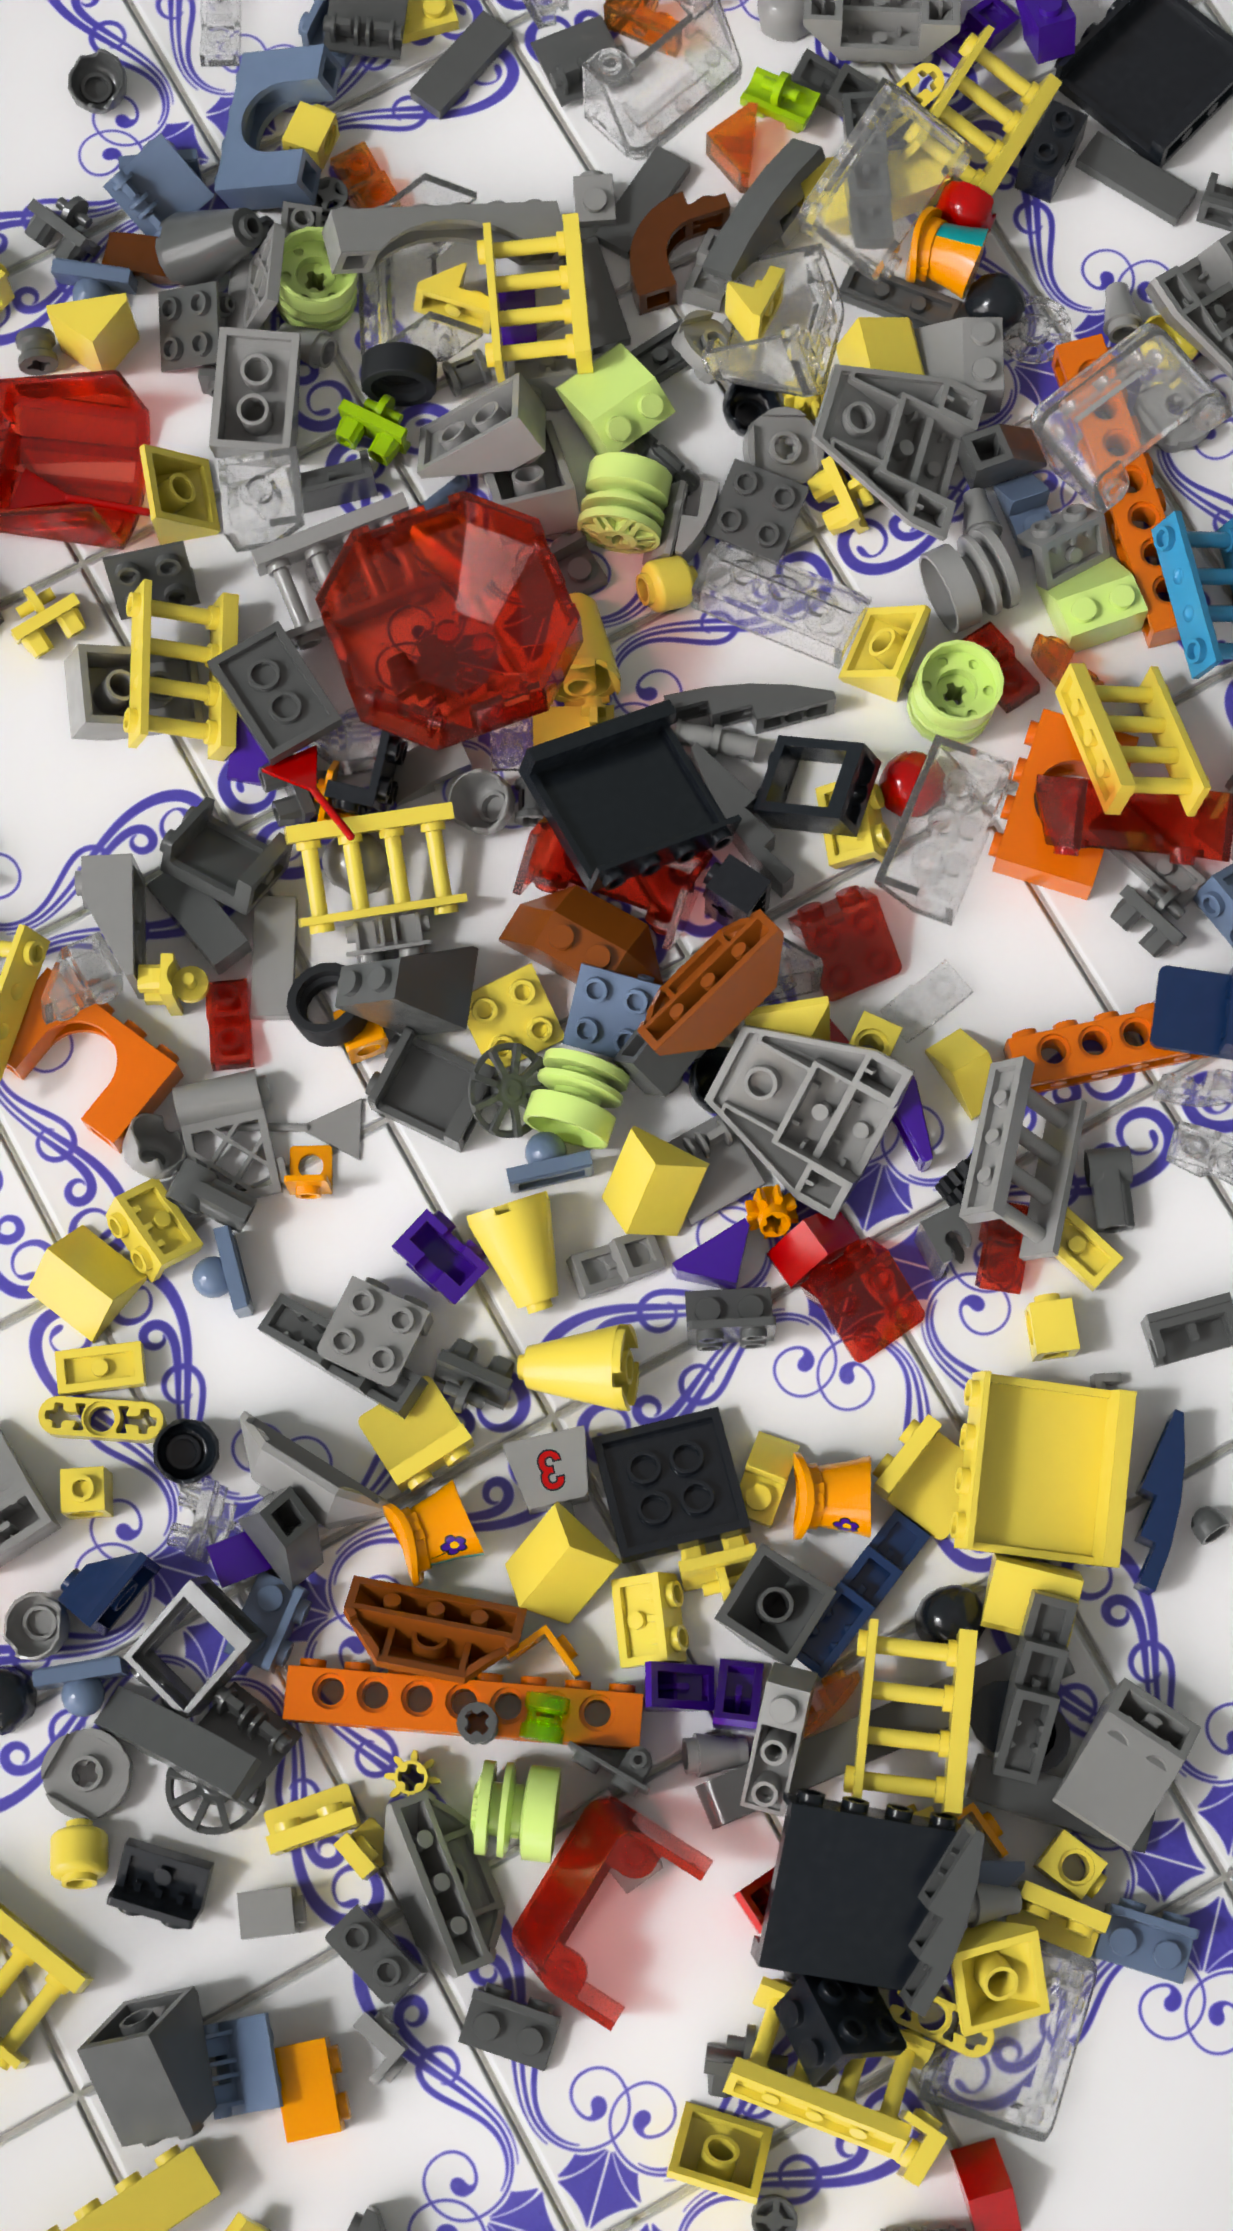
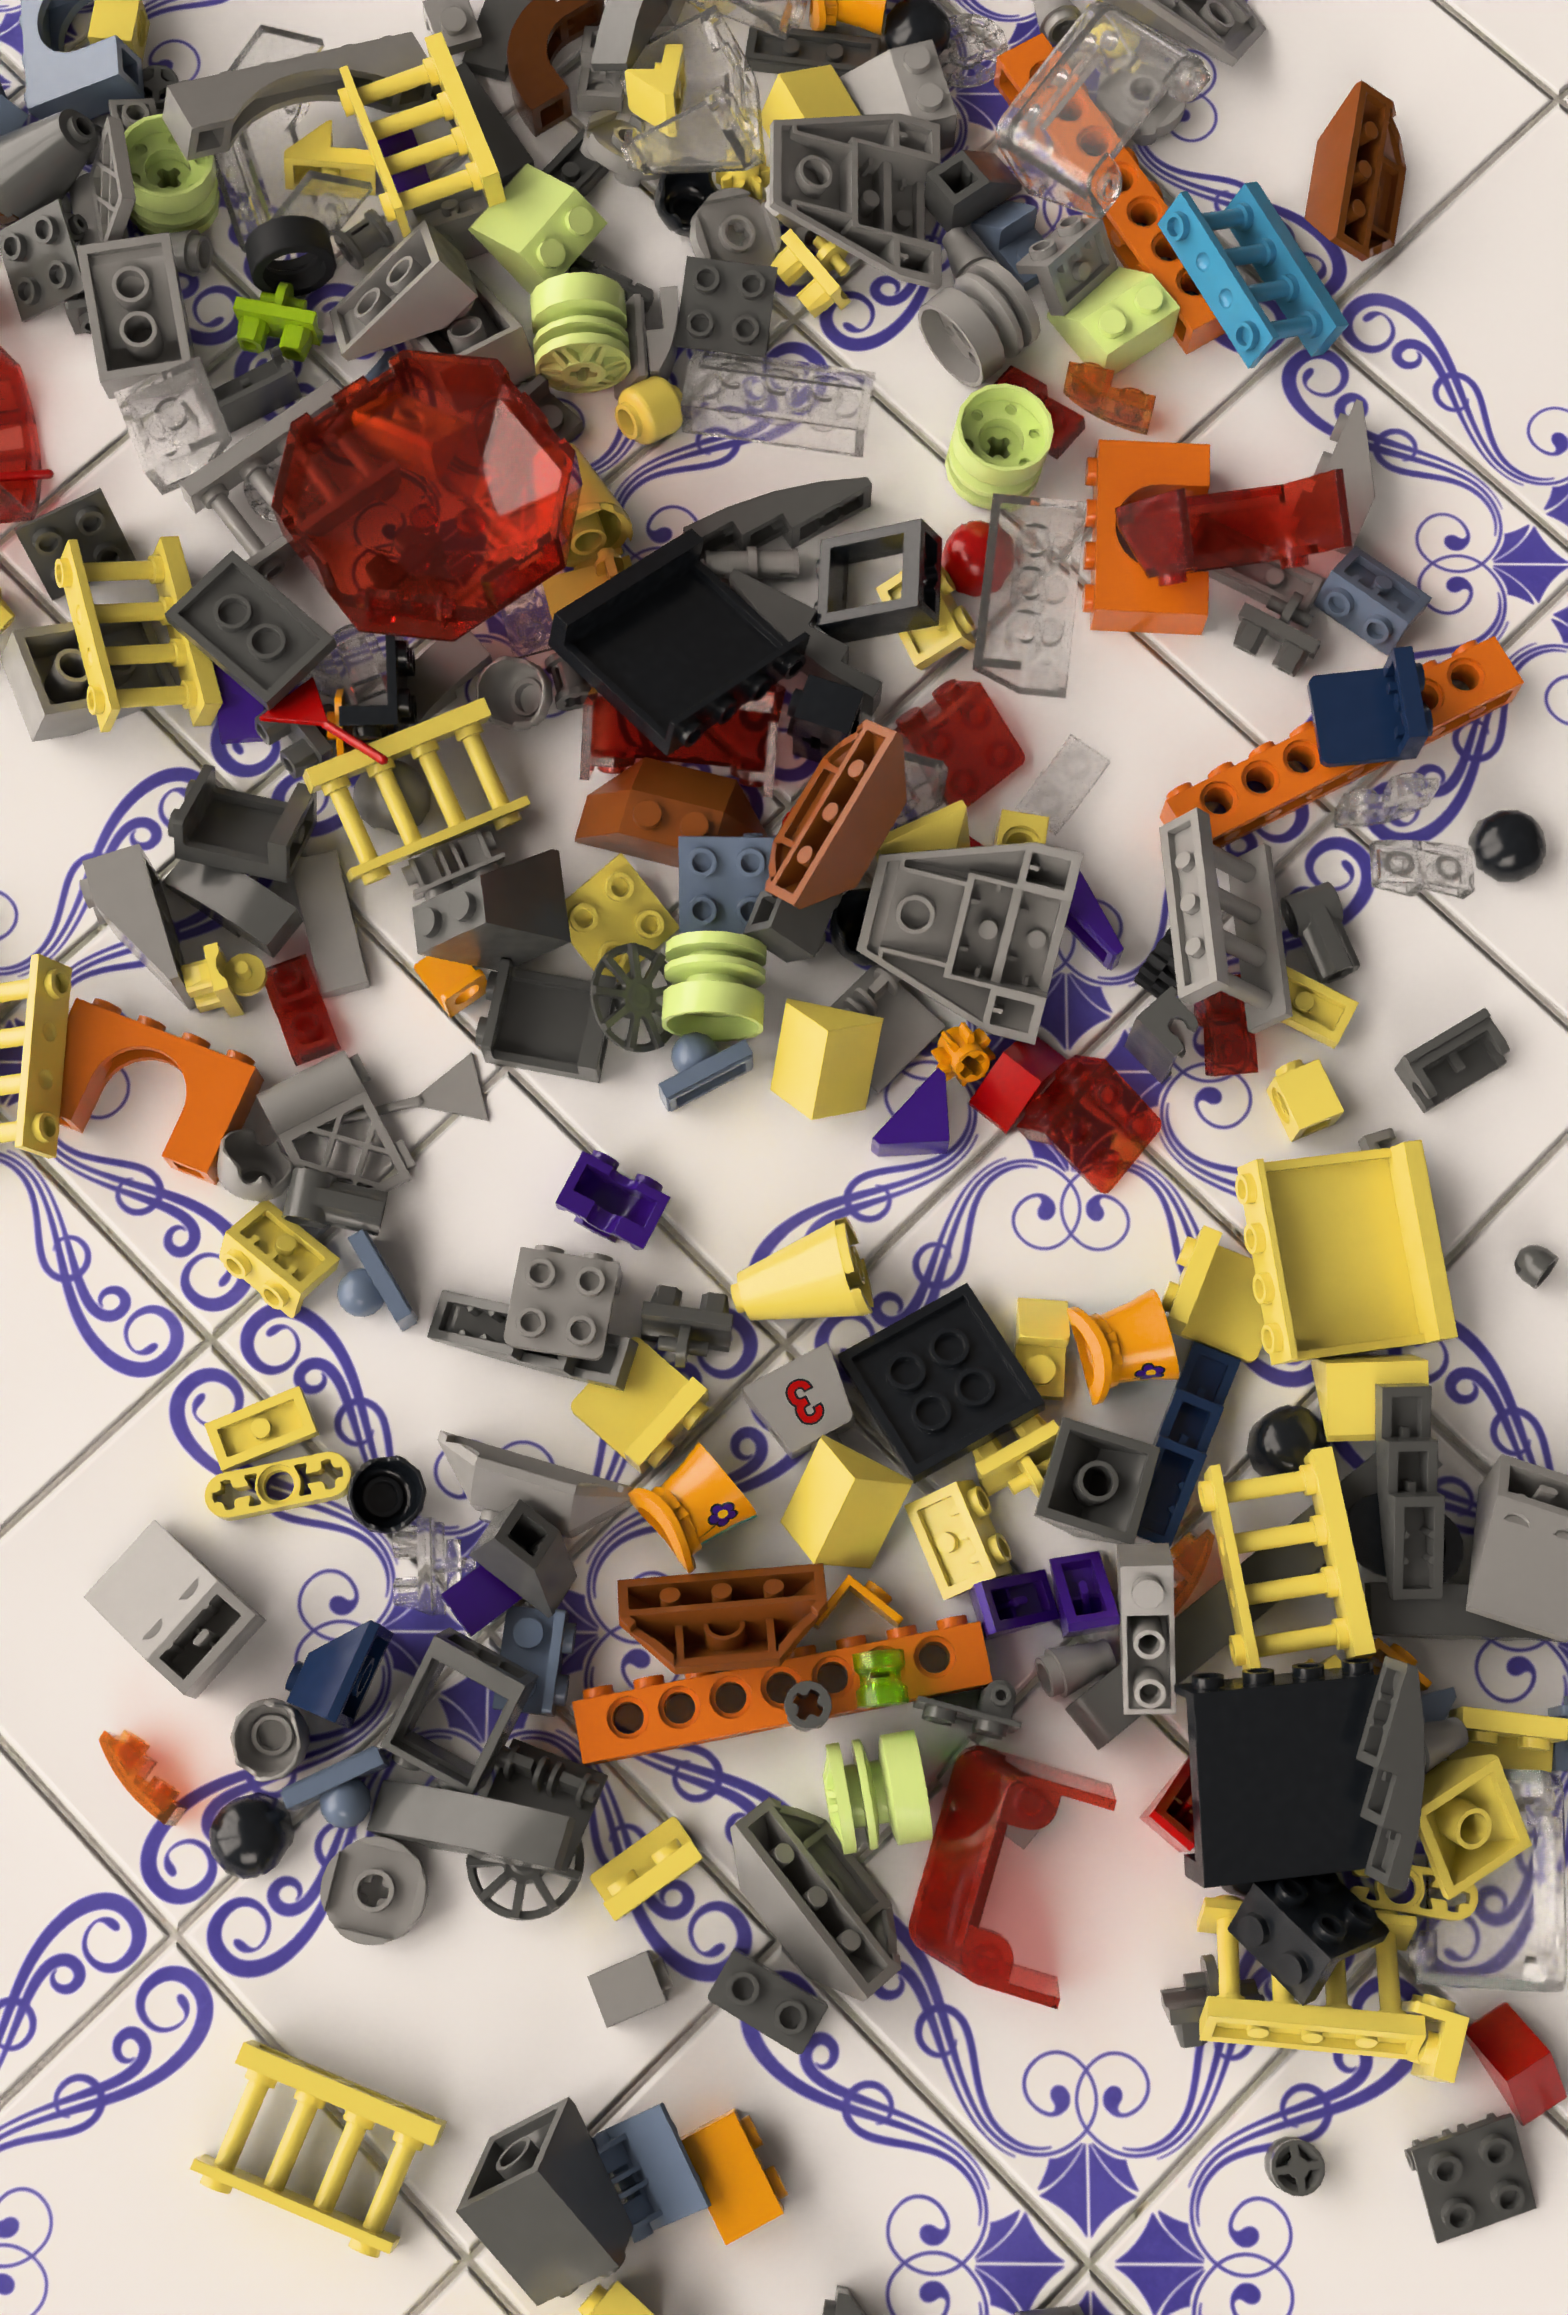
camera: 20 degrees left, 0 degrees up
(79, 1854) = (392, 1985): light yellow head -> none
(81, 977) = (119, 997): clear slope -> none
(85, 1282) = (216, 1338): light yellow slope -> none
(86, 1492) = (285, 1572): light yellow brick -> none
(161, 1884) = (495, 1992): black bracket -> none
(179, 494) = (80, 445): light yellow slope -> none
(301, 994) = (371, 957): black tyre -> none
(310, 1185) = (441, 1161): light orange bracket -> none
(363, 177) = (186, 54): clear orange slope -> none
(363, 1848) = (716, 1883): light yellow bracket -> none
(381, 2033) = (795, 2087): light grey bracket -> none
(405, 1768) = (734, 1781): light yellow gear -> none
(510, 2027) = (937, 2037): dark grey bracket -> none
(521, 1249) = (699, 1167): light yellow cone -> none
(615, 1264) = (807, 1158): light grey slope -> none
(720, 2152) = (1213, 2110): light yellow slope -> none
(730, 1317) = (950, 1182): dark grey bracket -> none
(885, 649) = (907, 421): light yellow slope -> none
(963, 1068) = (1128, 847): light yellow slope -> none
(1051, 1864) = (1479, 1681): light yellow brick -> none
(1108, 760) = (1181, 464): light yellow fence -> none
(1163, 1487) = (1476, 1238): dark blue slope -> none

